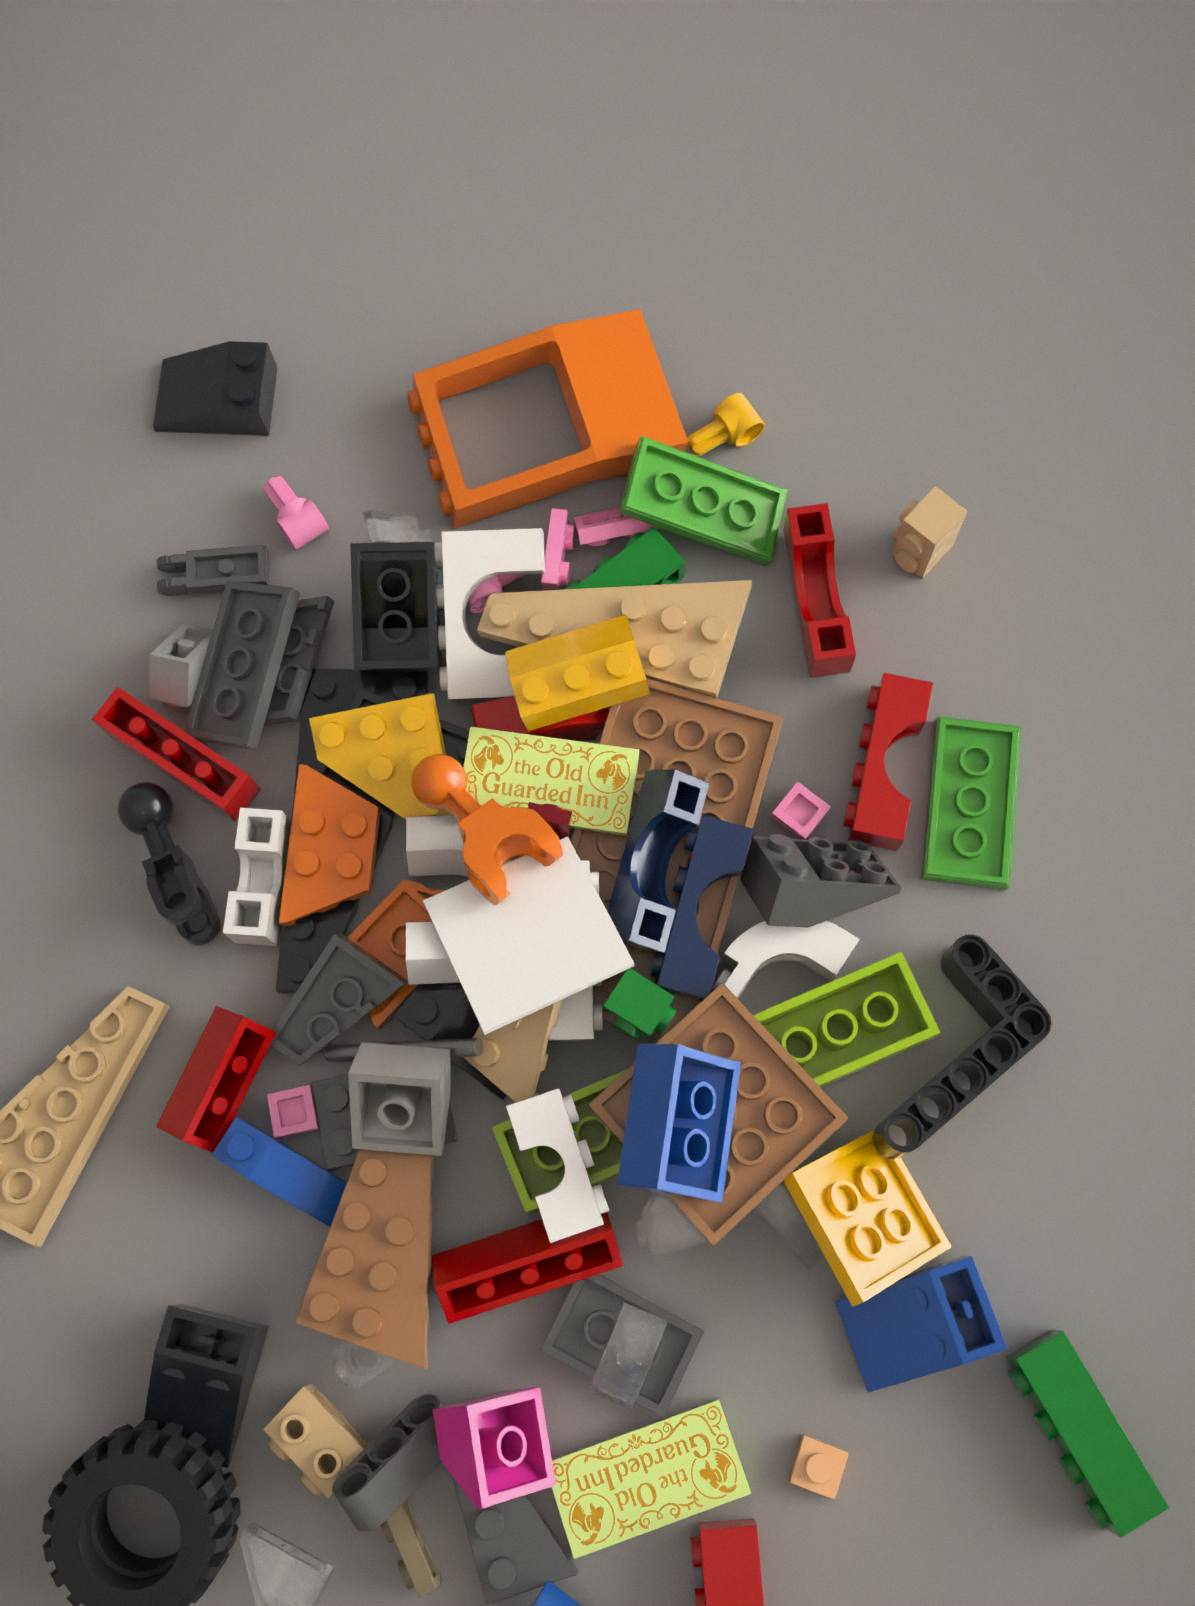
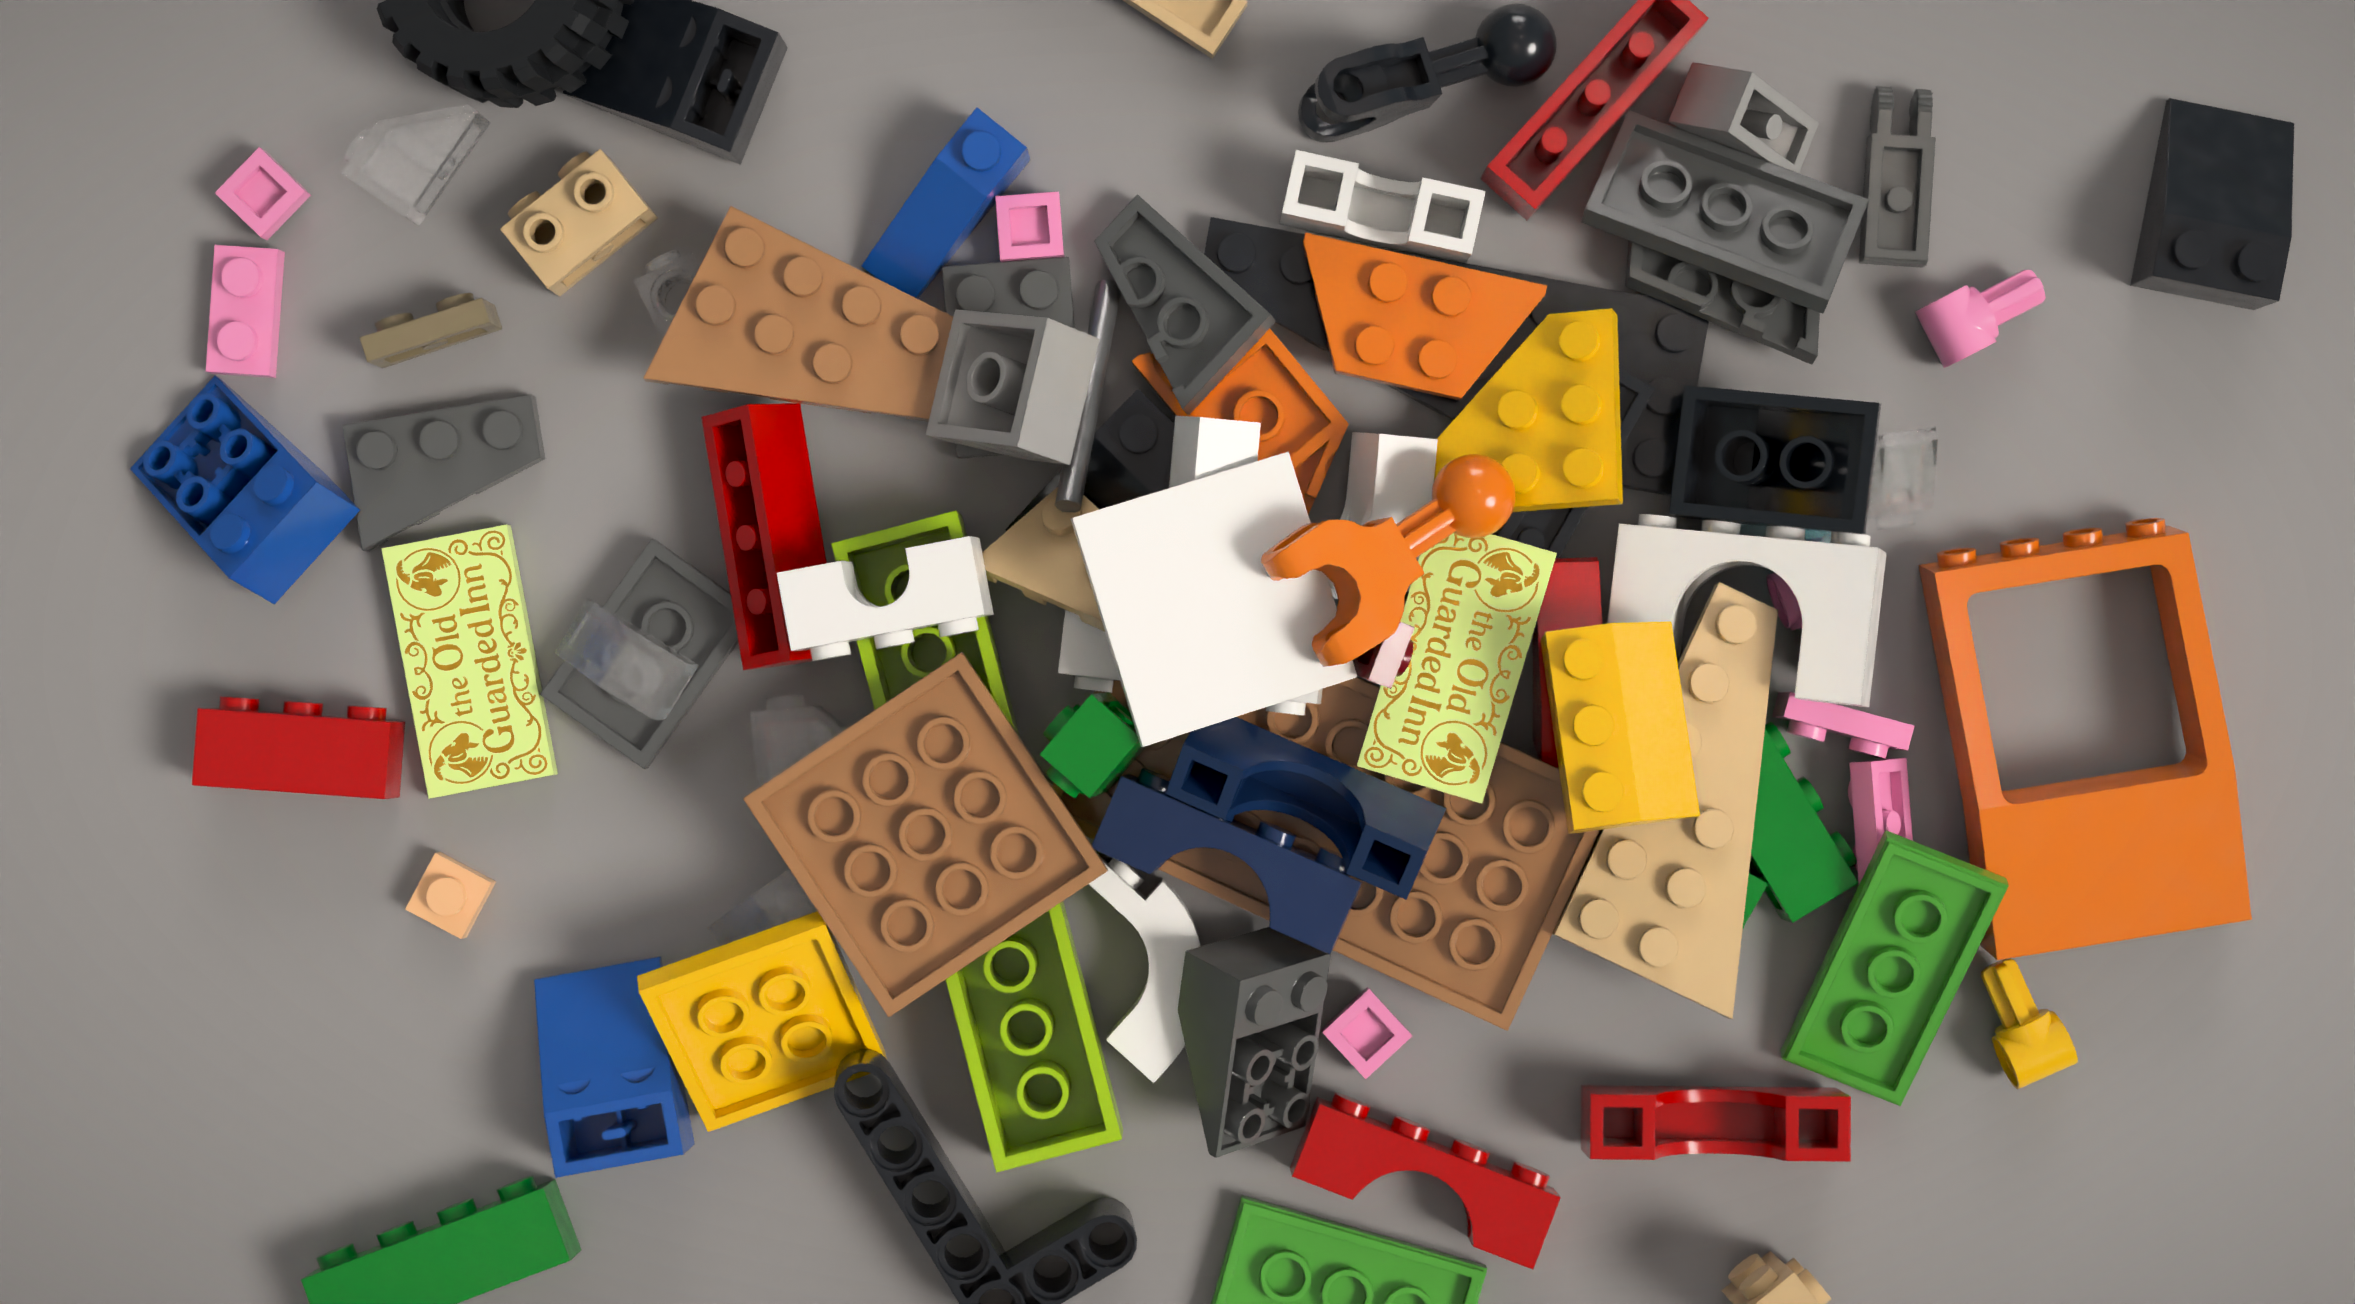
camera: 90 degrees right, 15 degrees up
(216, 1079) = (1088, 120): red brick -> none
(390, 1466) = (532, 326): dark grey beam -> none
(496, 1445) = (534, 463): dark pink slope -> none
(679, 1122) = (911, 776): blue slope -> none

